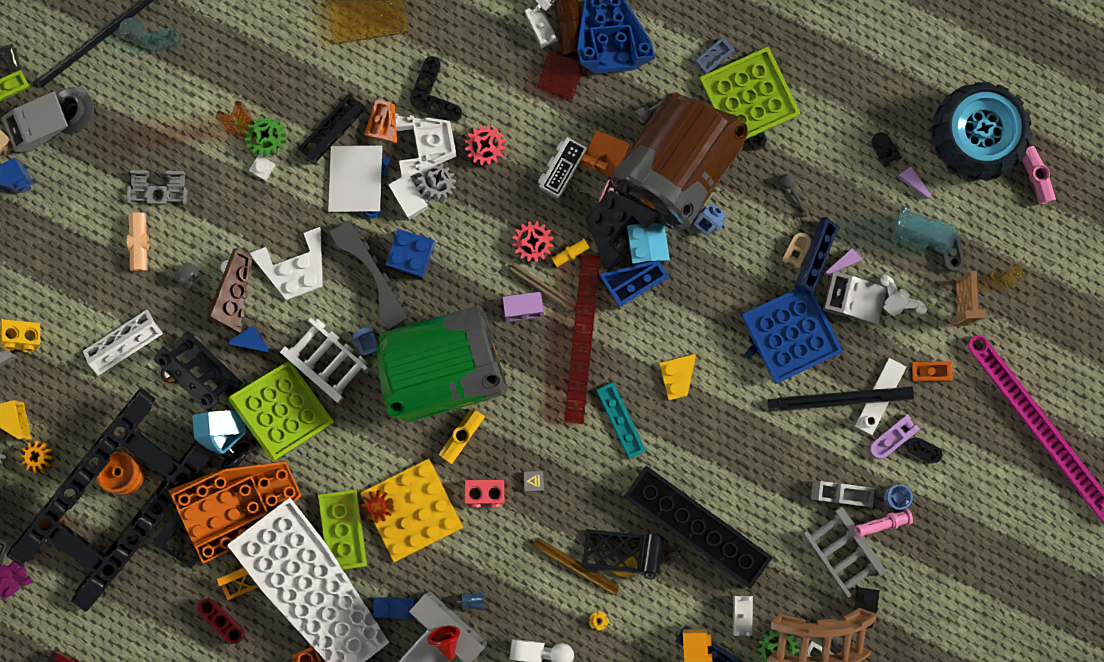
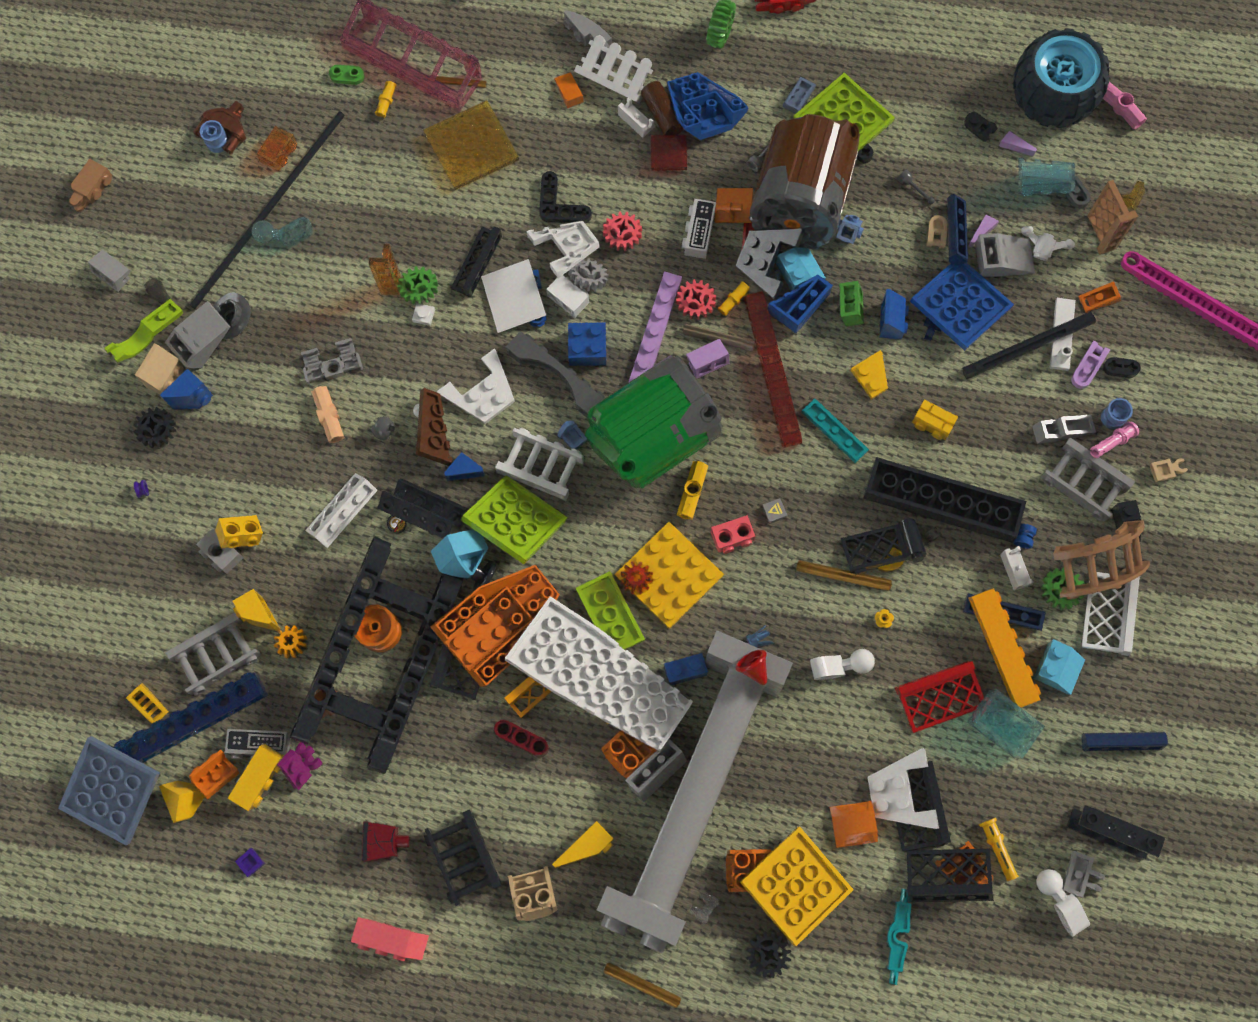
camera: 20 degrees left, 10 degrees down
(382, 122) = (521, 240): orange wing -> none
(481, 261) = (656, 324): none -> lavender plate
(682, 298) = (851, 303): none -> bright green brick
(719, 324) = (893, 316): none -> blue slope
(719, 443) = (934, 420): none -> yellow brick
(762, 587) = (1025, 536): none -> blue wheel
(923, 567) = (1165, 470): none -> tan plate

